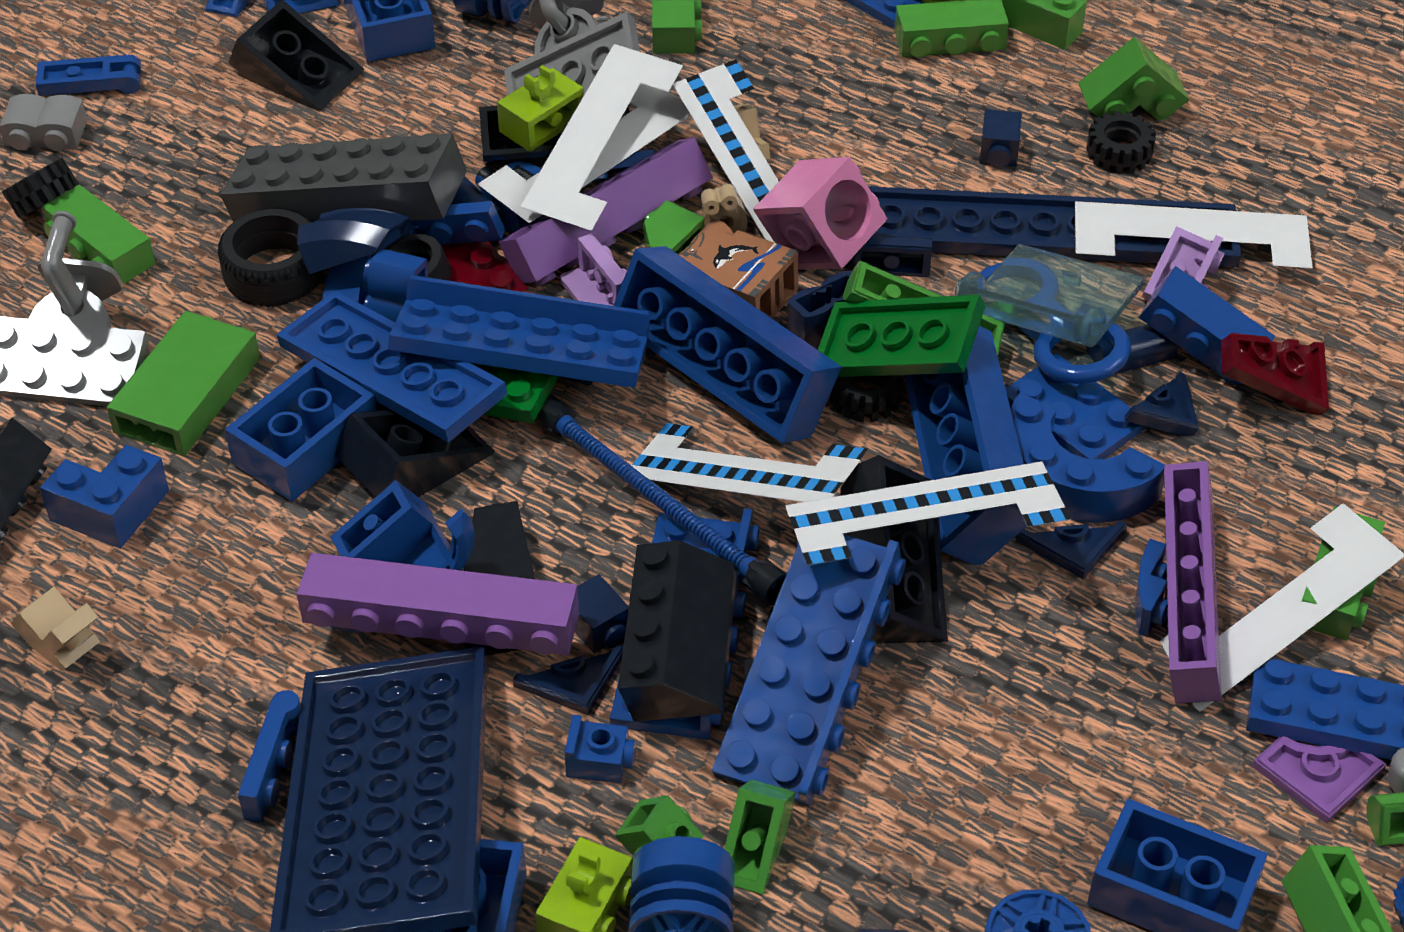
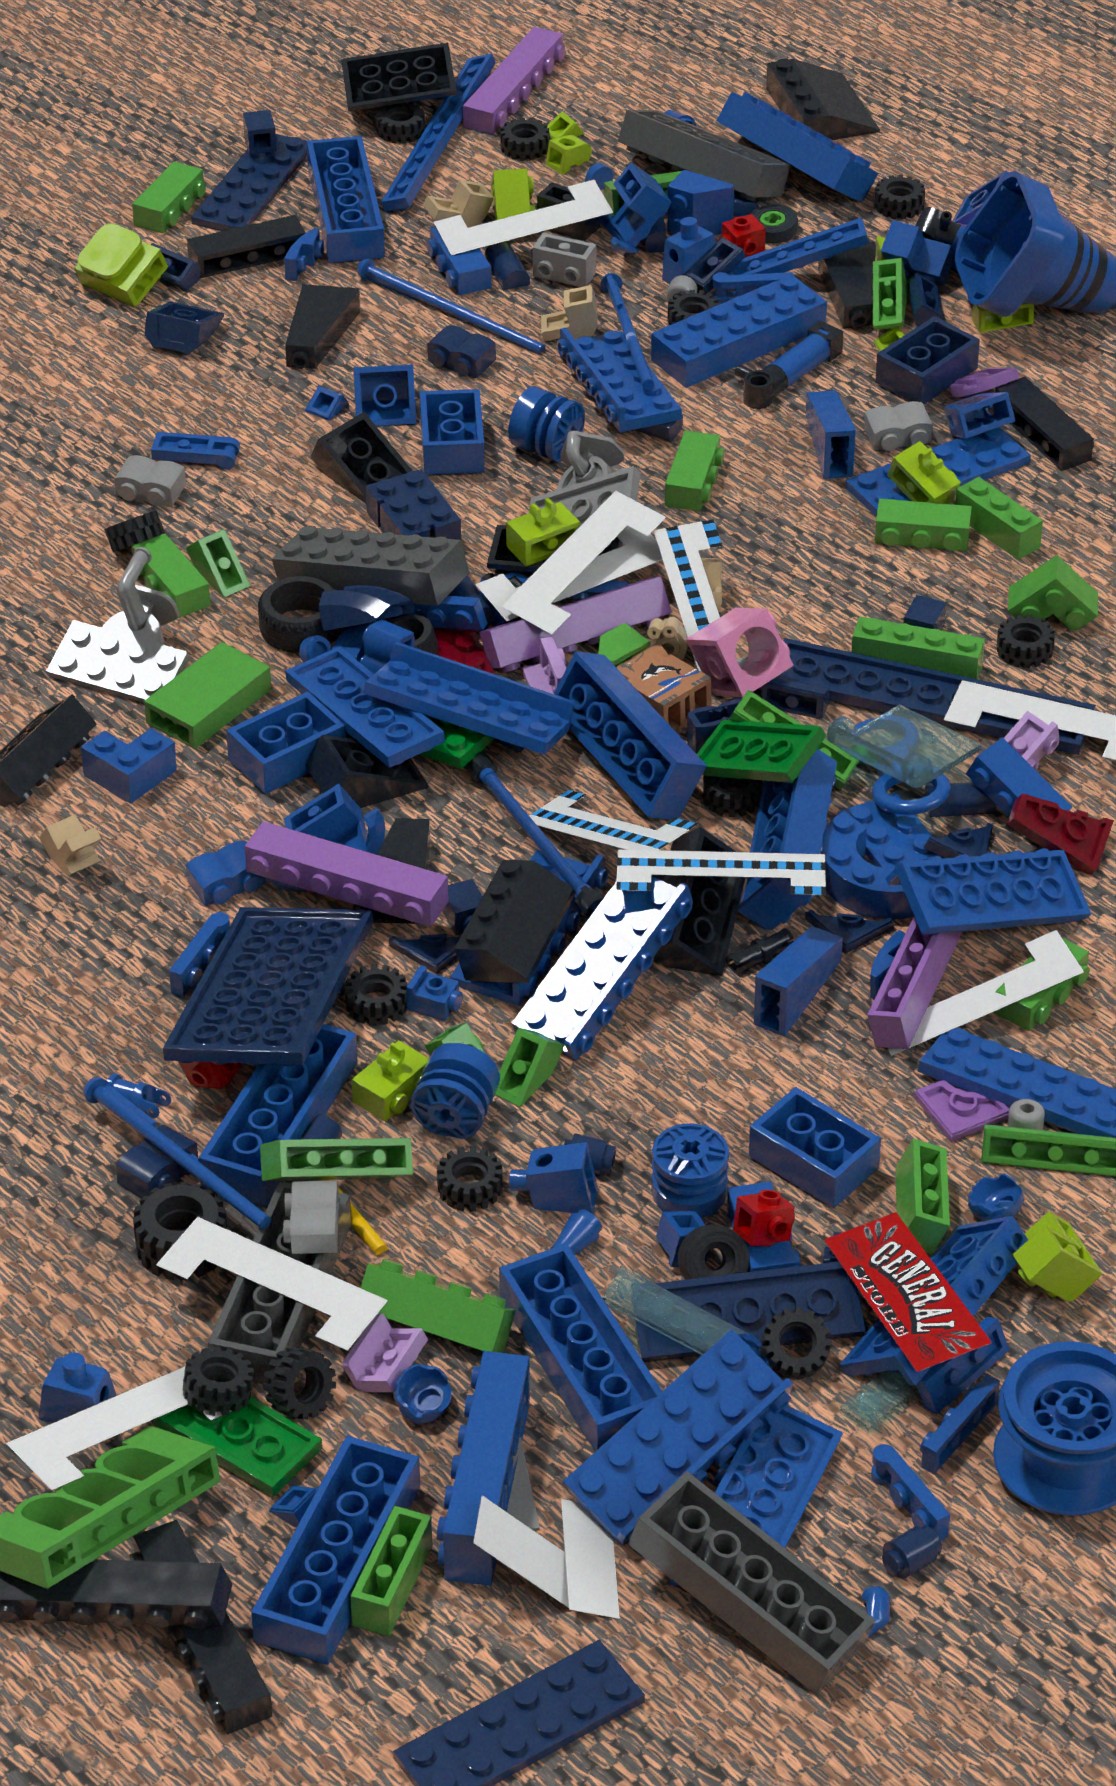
camera: 15 degrees right, 5 degrees down
(154, 210) = (218, 563): none -> bright green slope
(268, 629) = (222, 874): none -> blue brick
(301, 298) = (313, 647): none -> blue tile
(368, 104) = (411, 506): none -> dark blue piece
(523, 788) = (376, 1008): none -> black tyre
(984, 598) = (759, 951): none -> black pin
(1012, 169) = (919, 646): none -> bright green brick
(1049, 633) = (794, 979): none -> blue slope
(1241, 467) = (991, 891): none -> blue bracket

